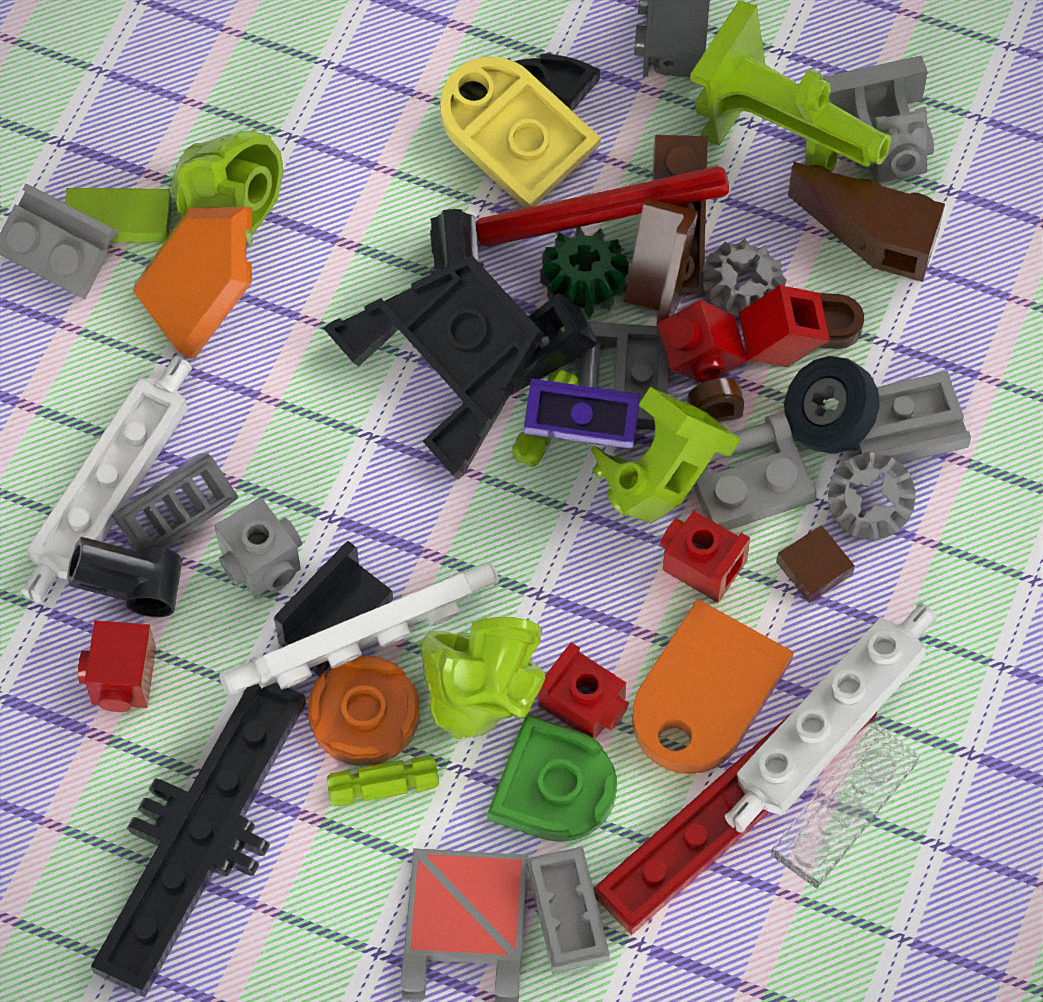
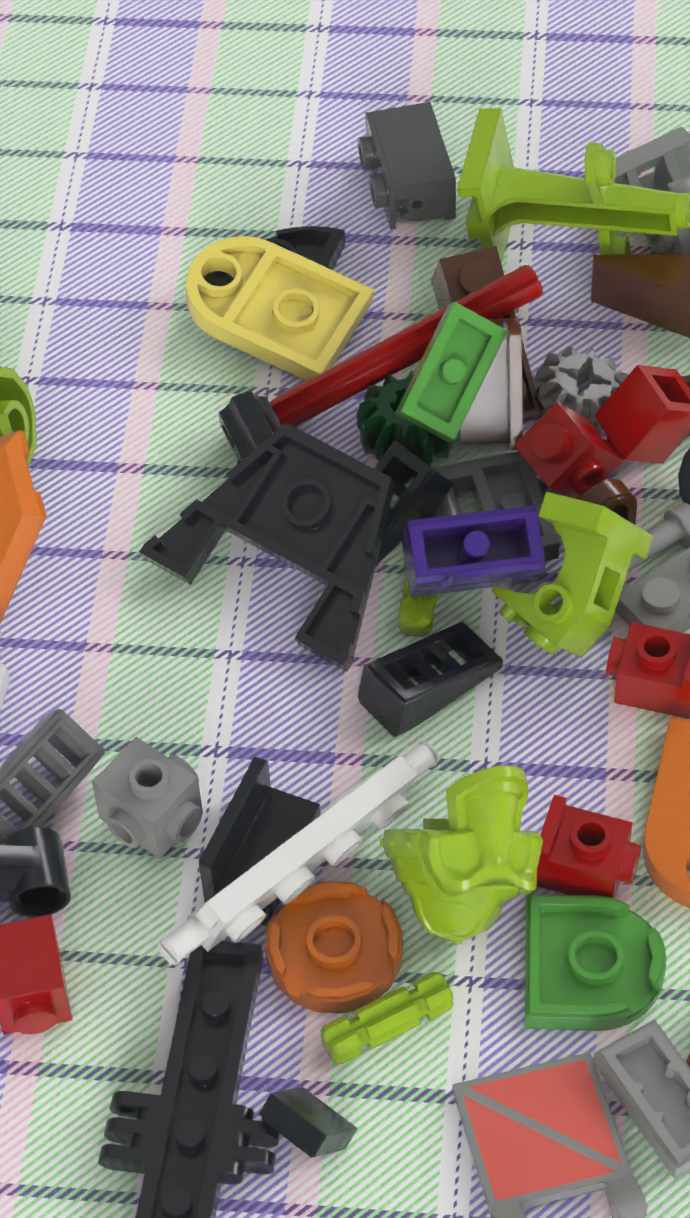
camera: 15 degrees left, 10 degrees down
(291, 845) = (307, 1122): none -> black tile
(486, 514) = (402, 705): none -> black slope
(622, 247) = (451, 372): none -> bright green plate

